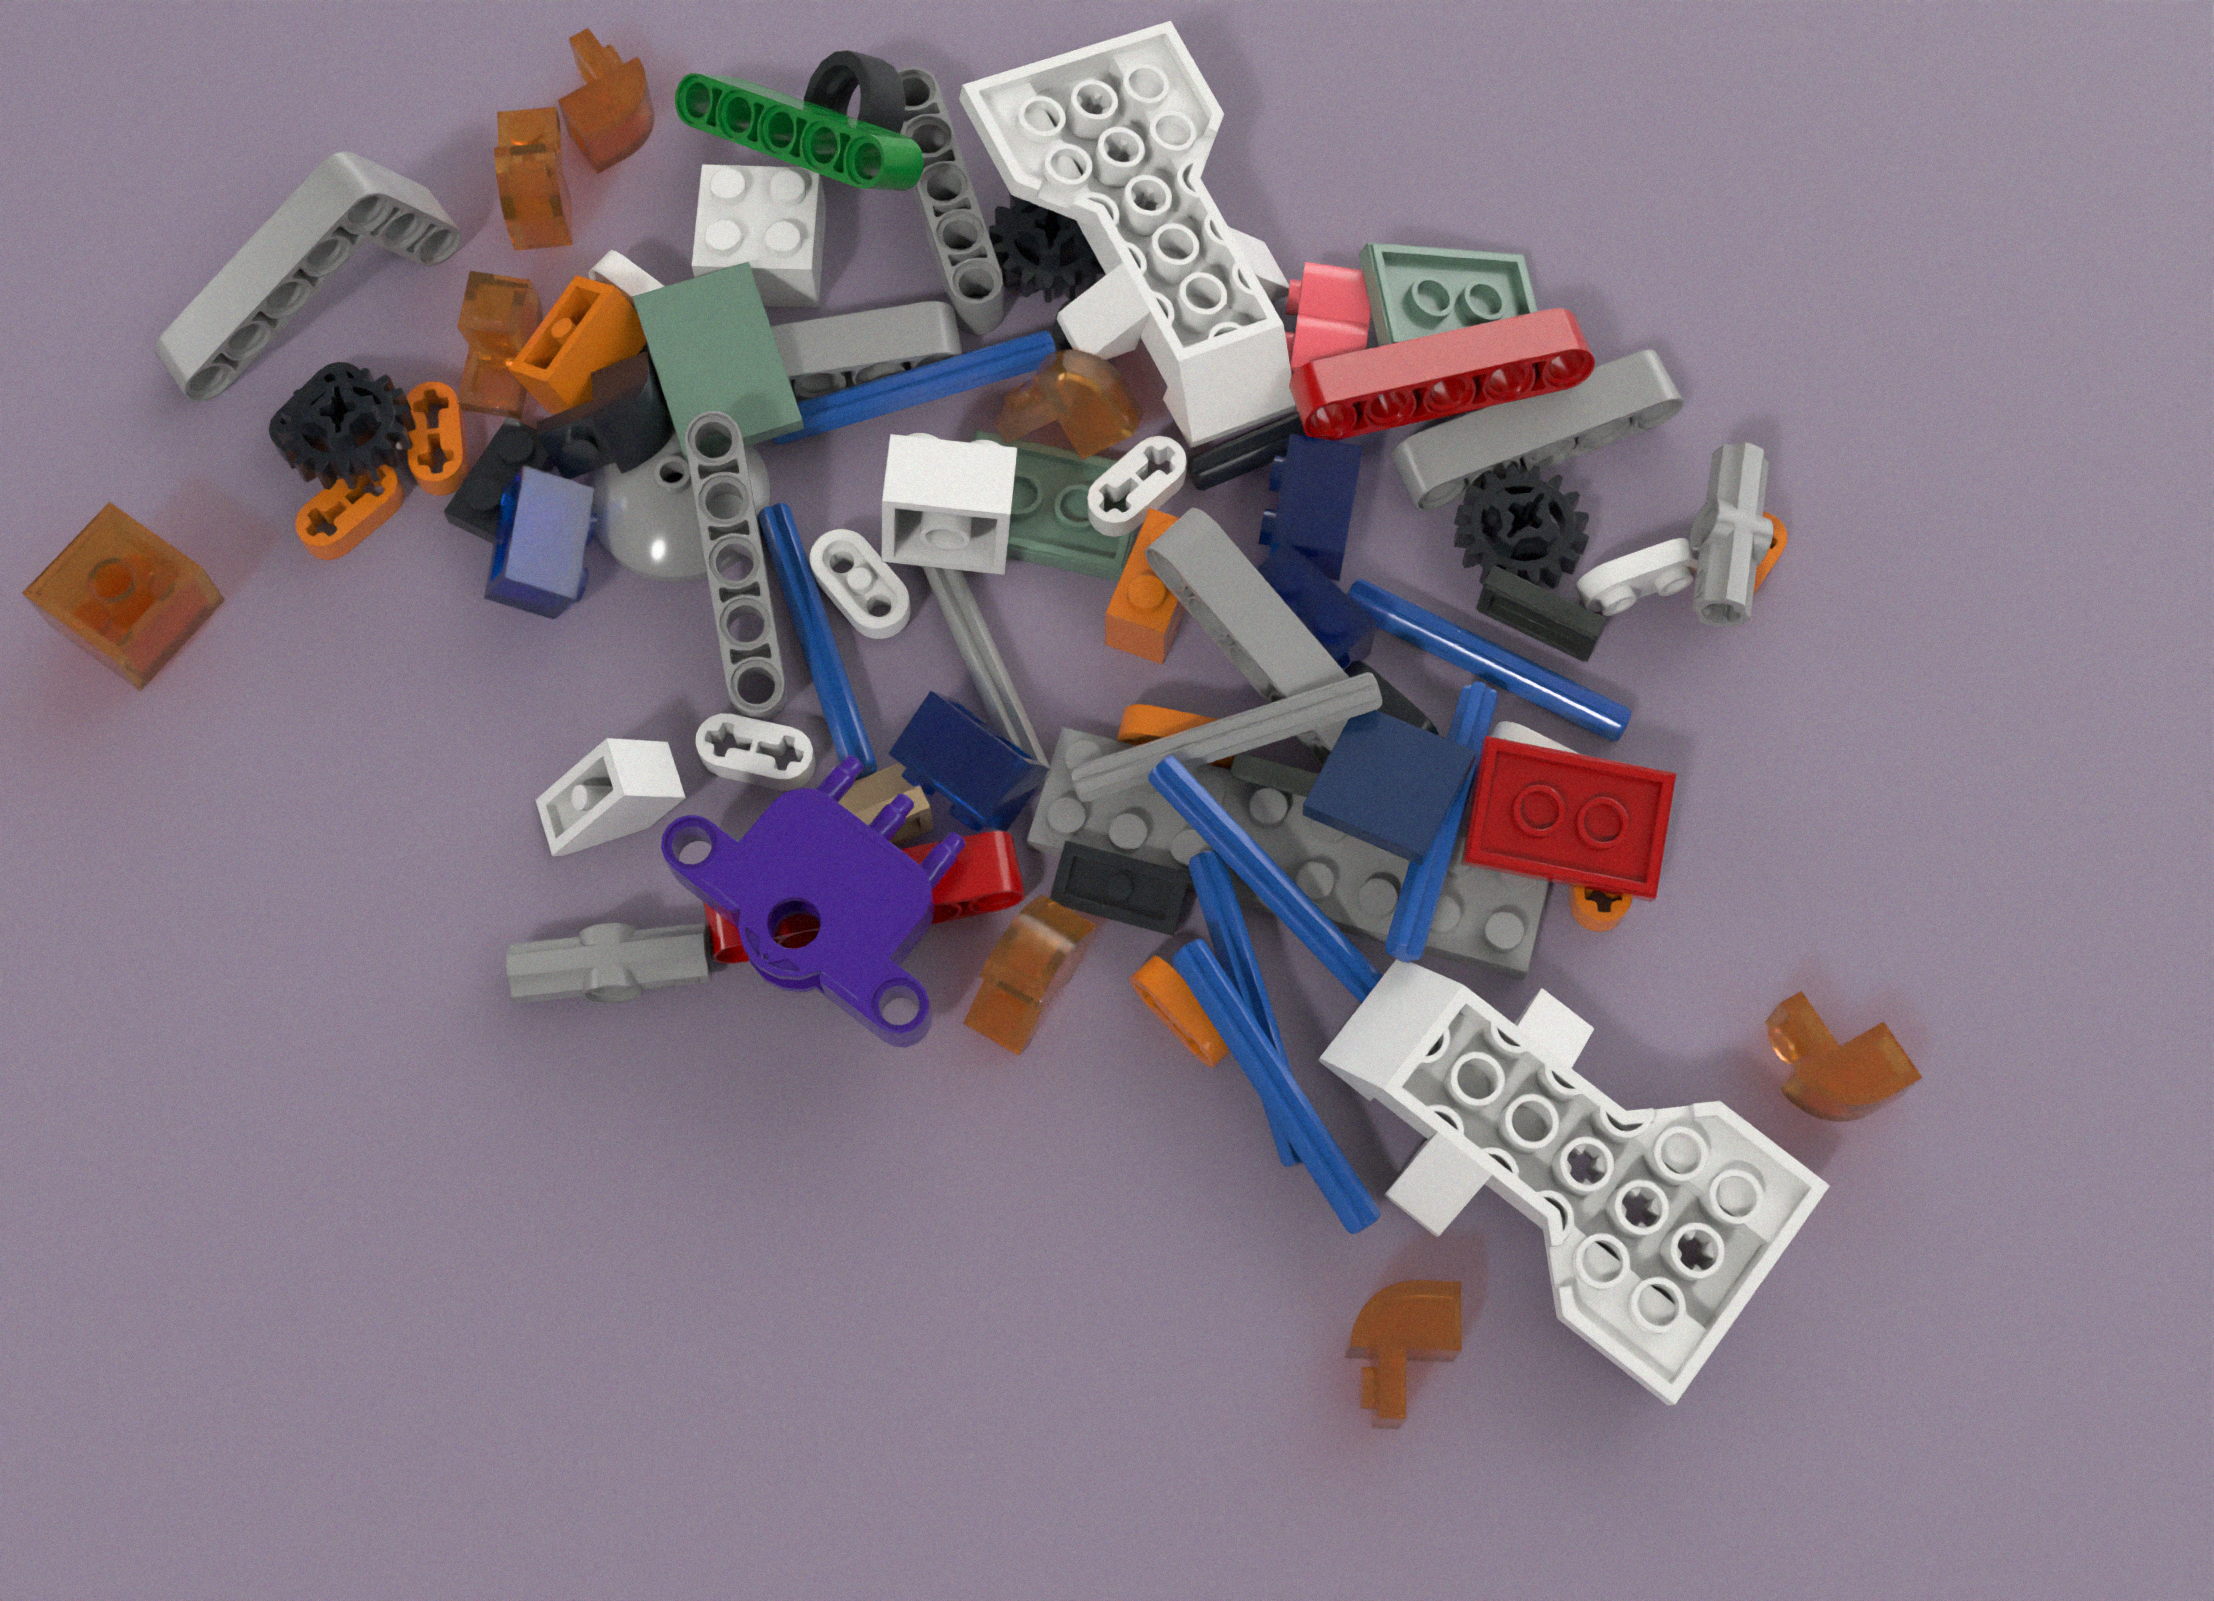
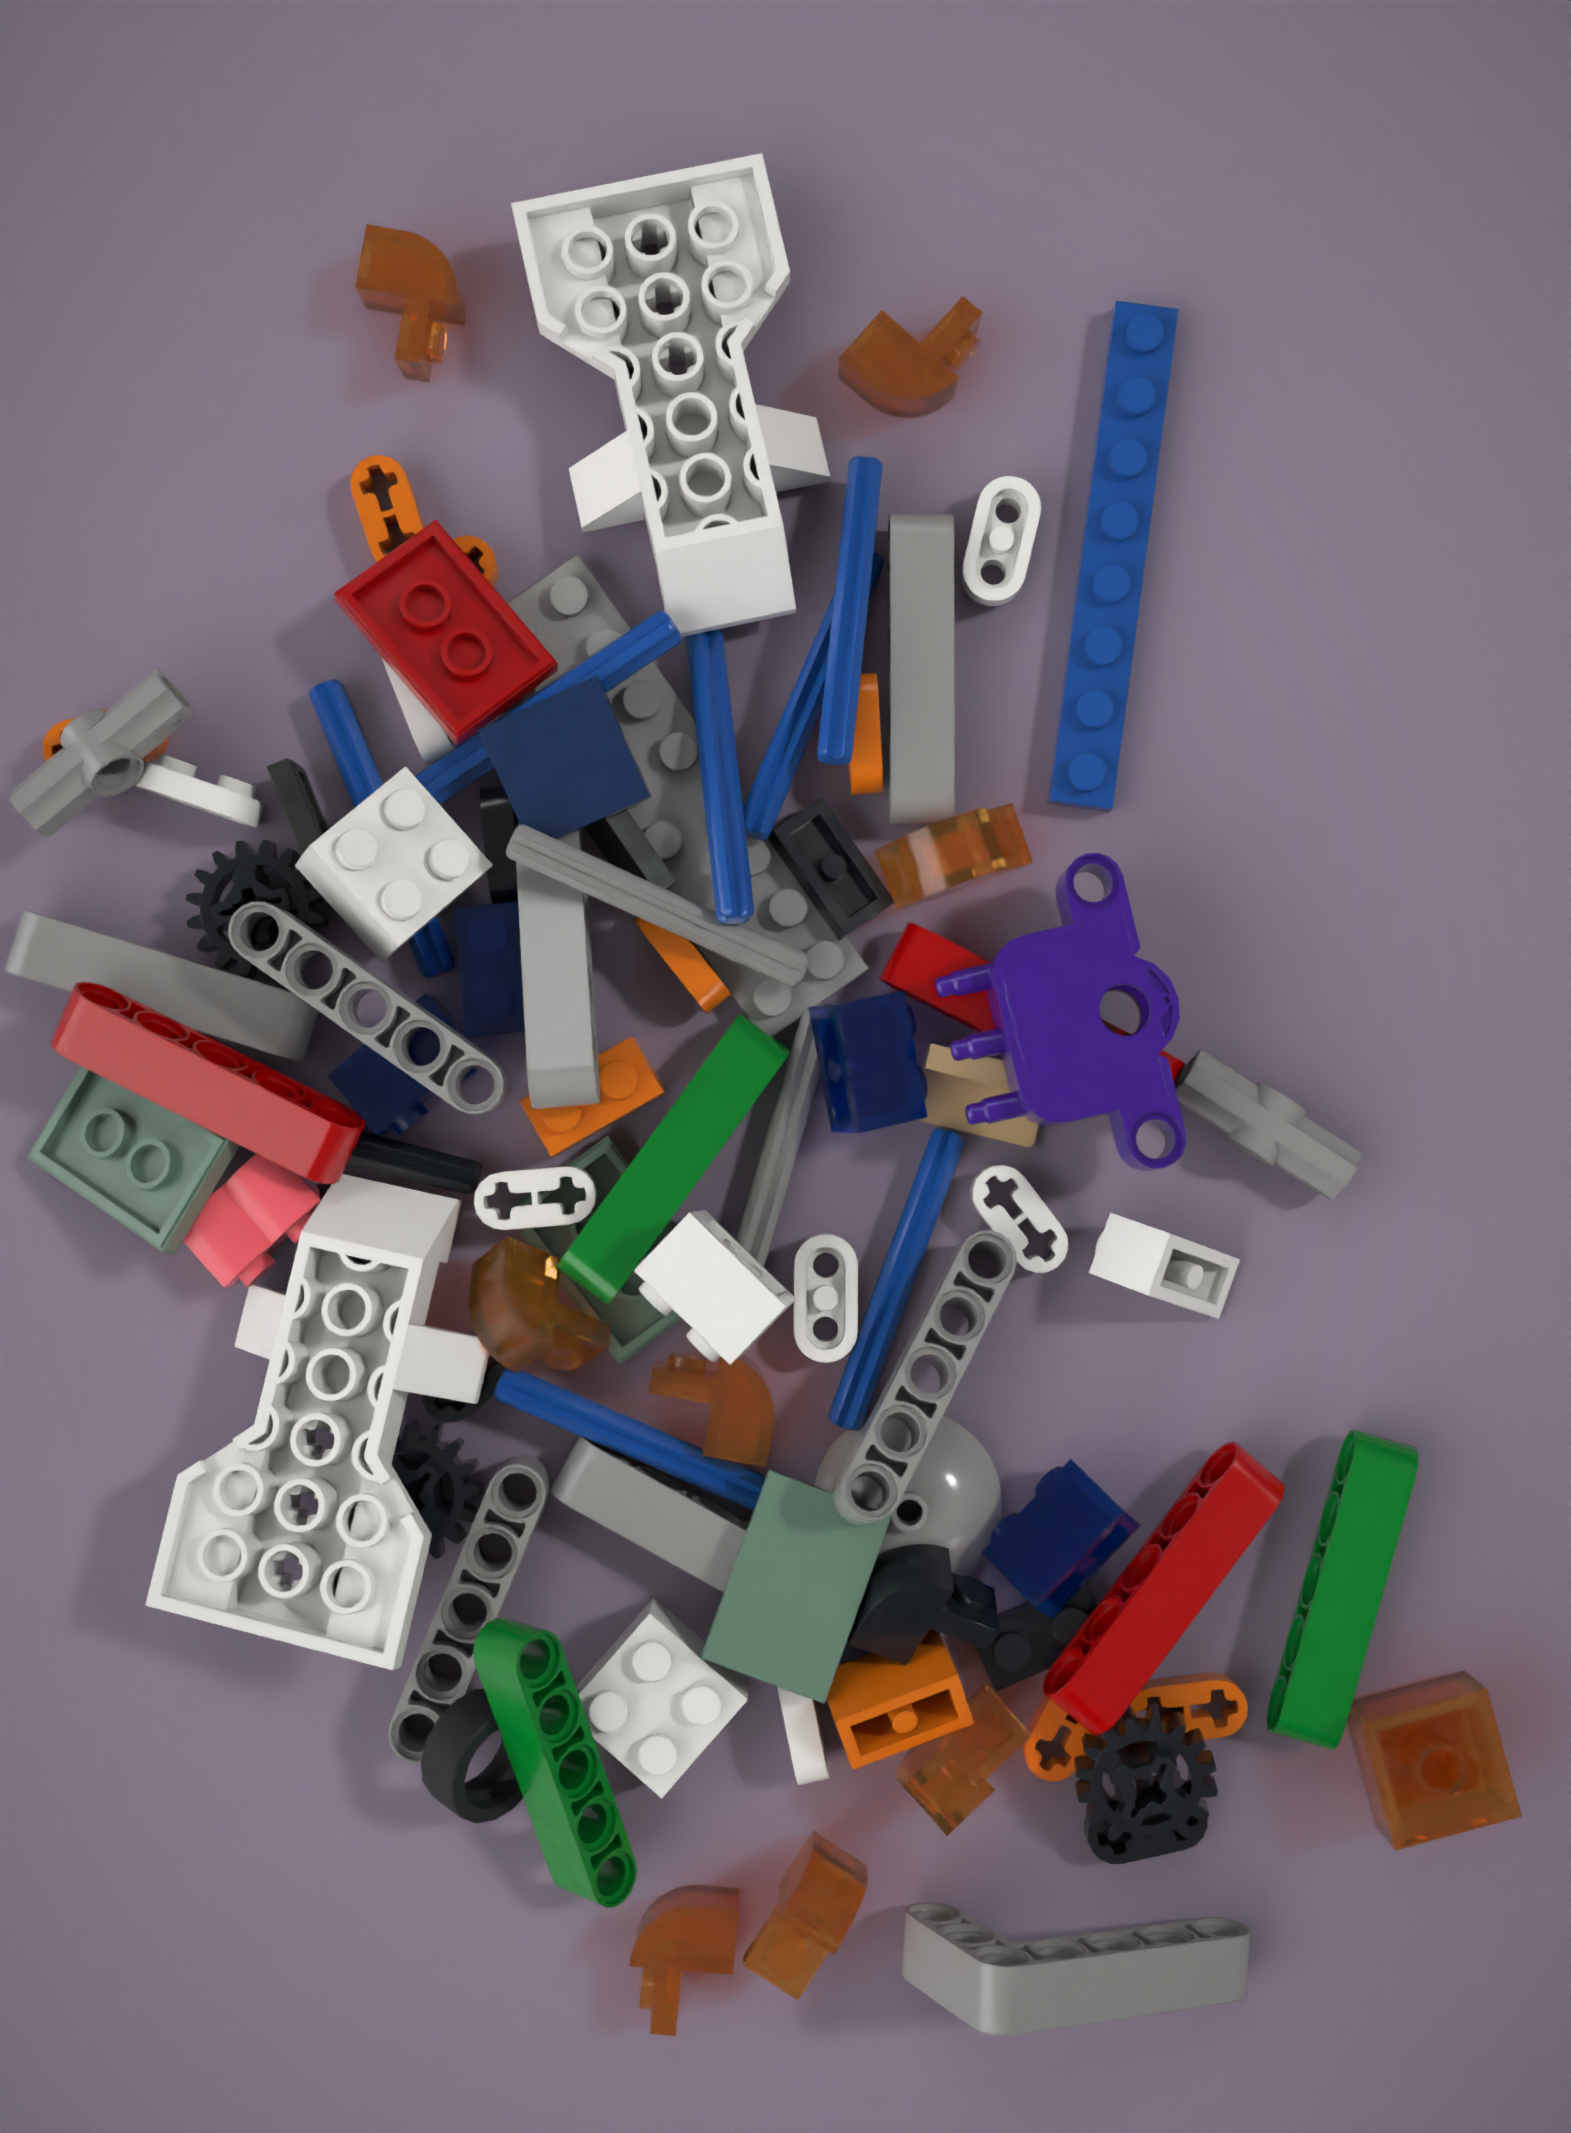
camera: 140 degrees left, 20 degrees up
(286, 674) = (1342, 1589): none -> green beam
(431, 567) = (1163, 1588): none -> red beam
(856, 453) = (740, 1400): none -> clear orange brick
(1058, 587) = (673, 1159): none -> green beam
(1105, 1333) = (1112, 556): none -> blue plate
(1182, 1100) = (921, 669): none -> light grey beam
(1203, 1258) = (1001, 543): none -> white plate
(1394, 482) = (340, 999): none -> light grey beam
(1448, 615) = (393, 864): none -> white brick
(1696, 887) = (371, 513): none -> orange beam

